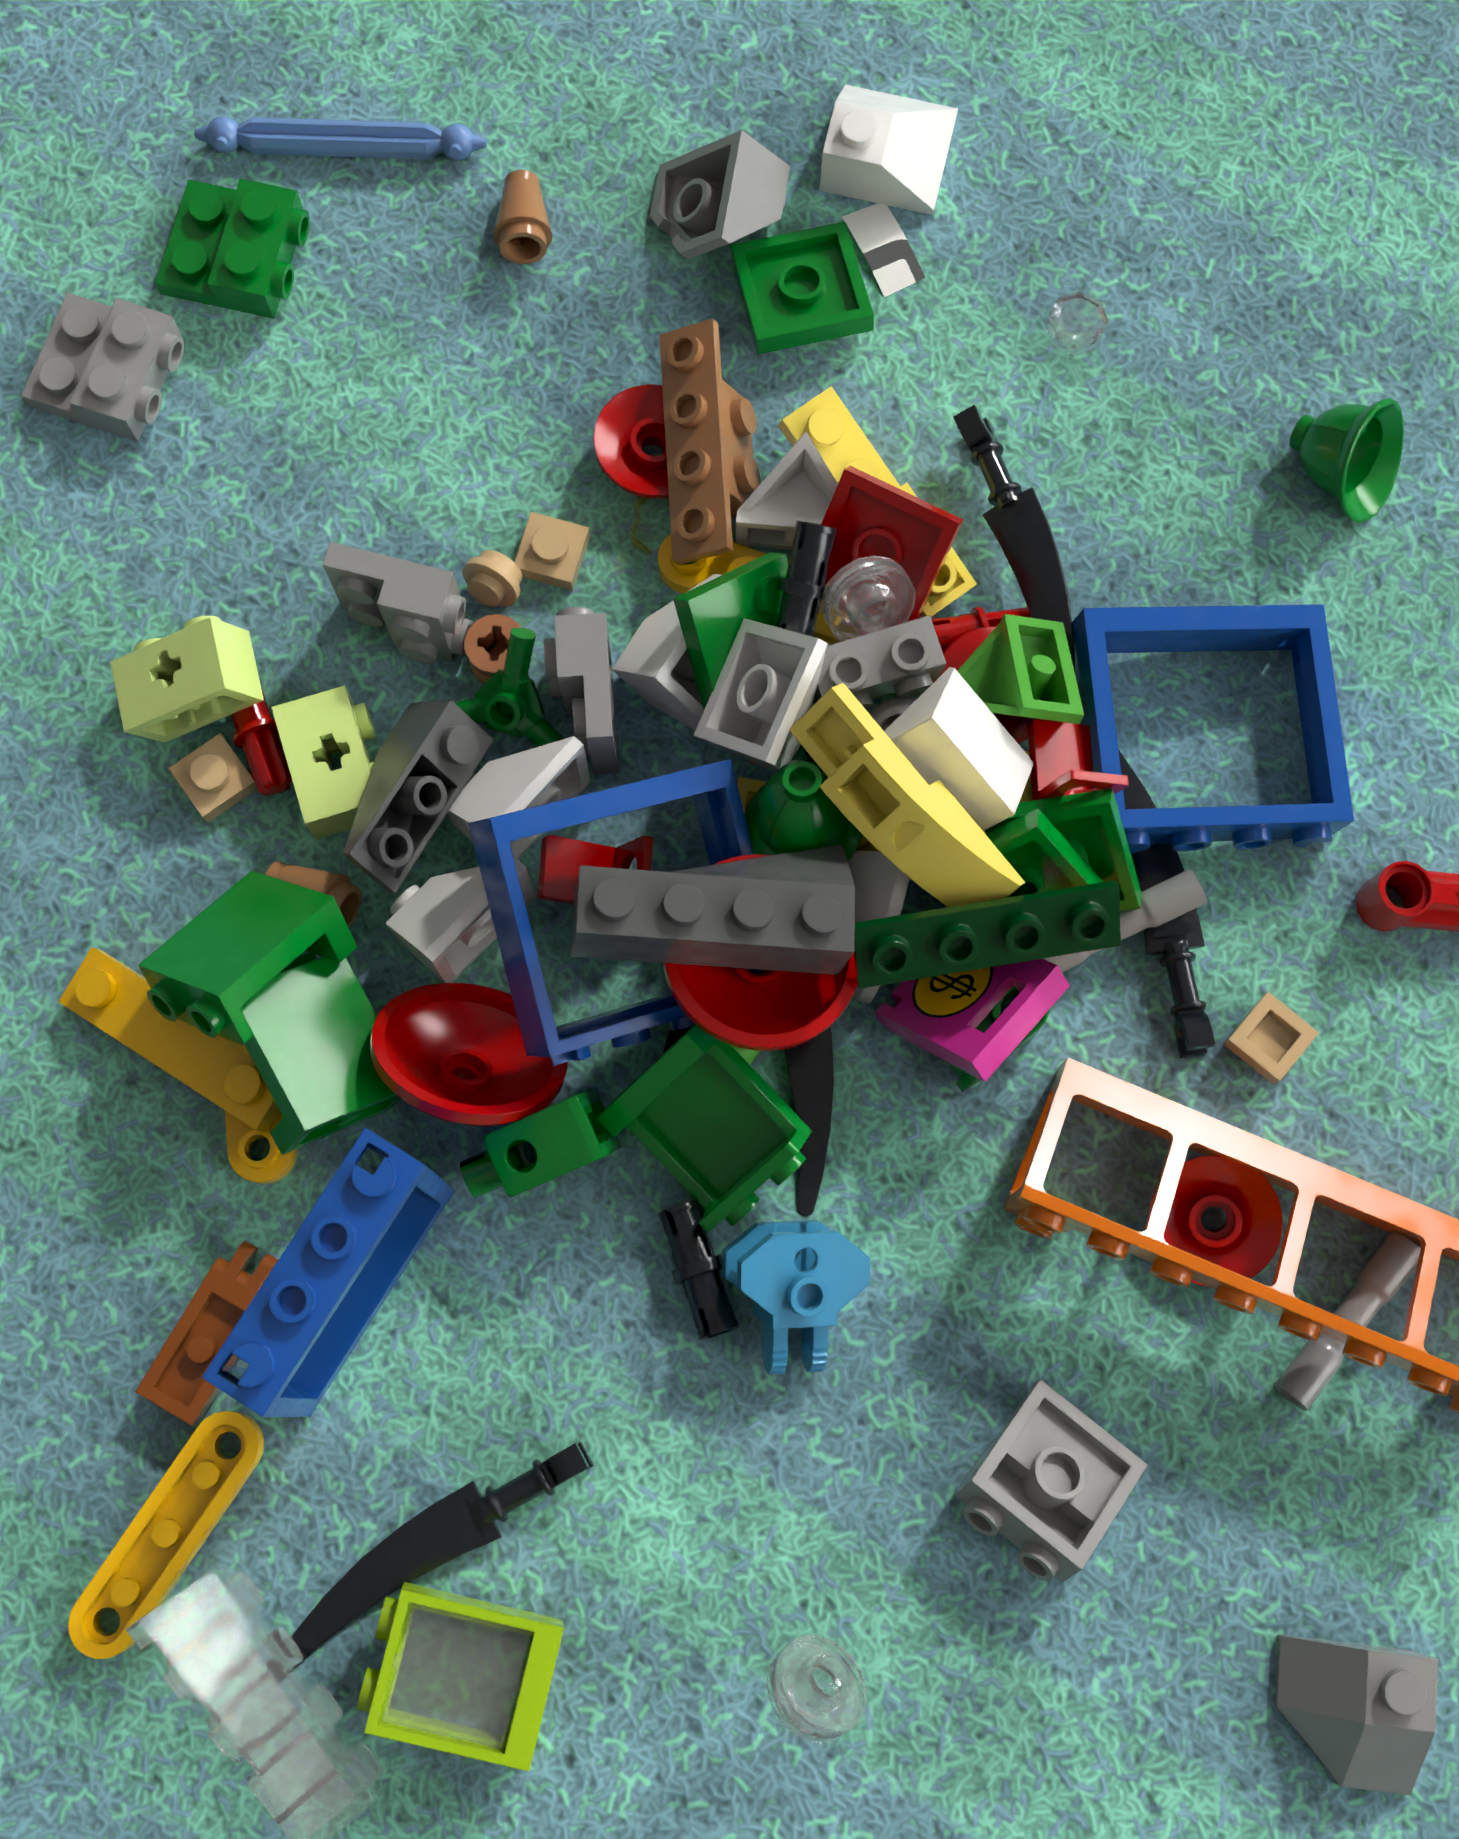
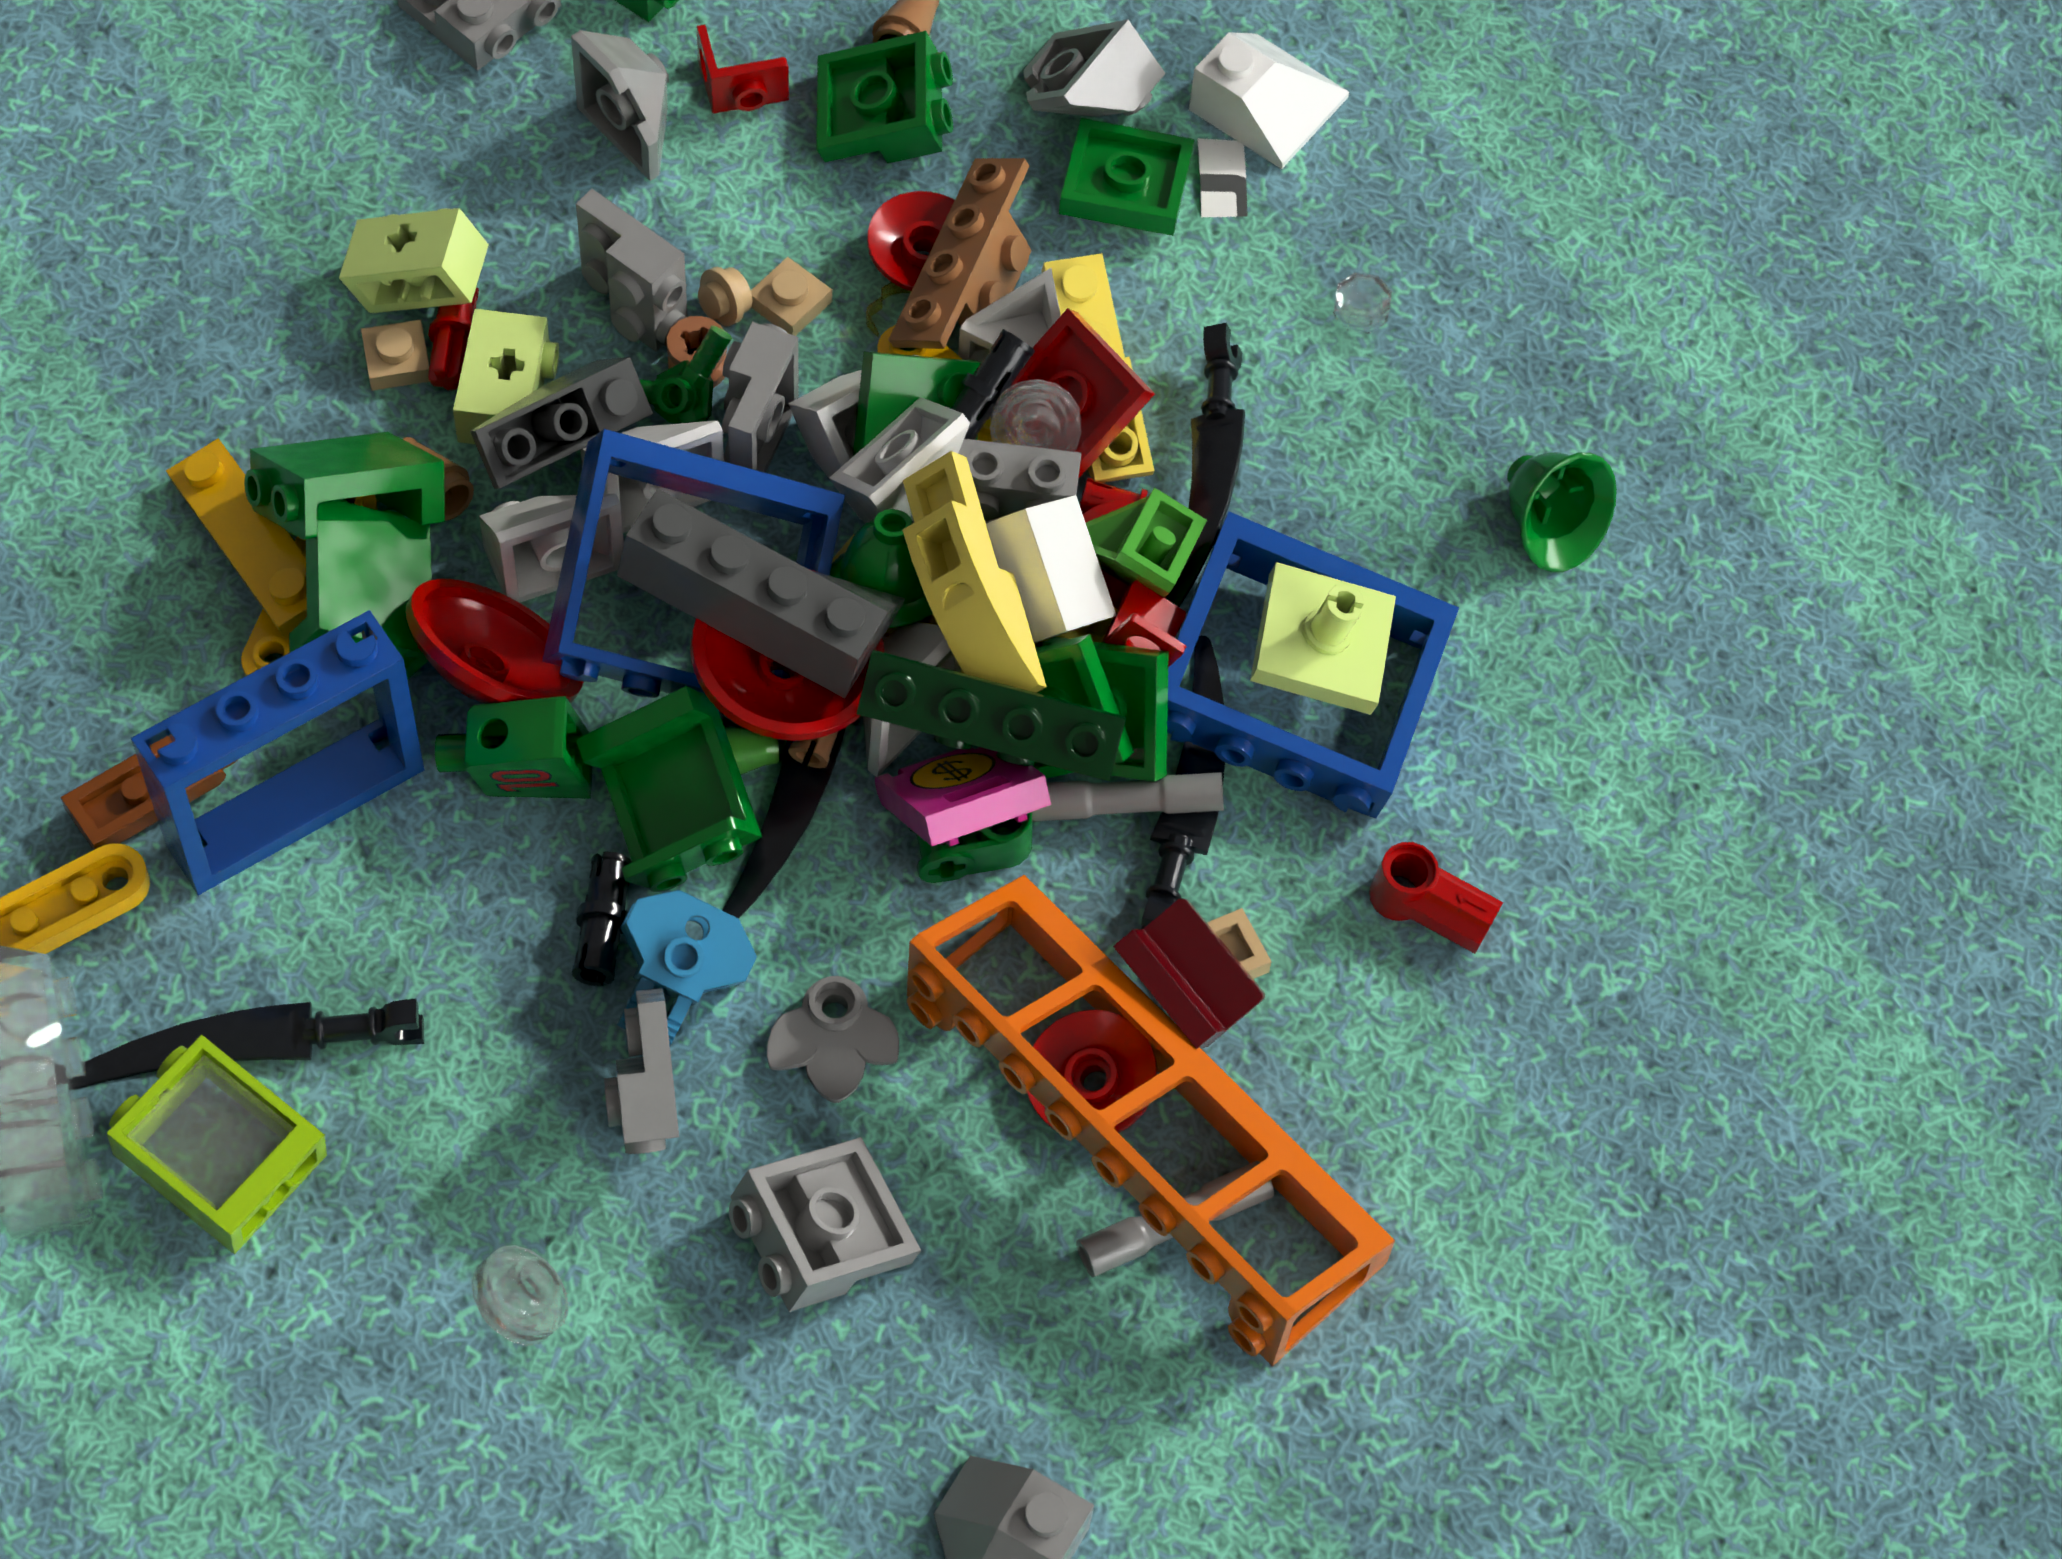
camera: 20 degrees right, 15 degrees down
(297, 413) = (623, 95): none -> light grey slope
(399, 354) = (742, 85): none -> red bracket
(540, 308) = (883, 99): none -> green plate
(831, 1435) = (643, 1091): none -> light grey plate
(967, 1297) = (833, 1047): none -> light grey plate
(1228, 698) = (1323, 638): none -> yellowish green tile
(1259, 1085) = (1191, 973): none -> dark red panel

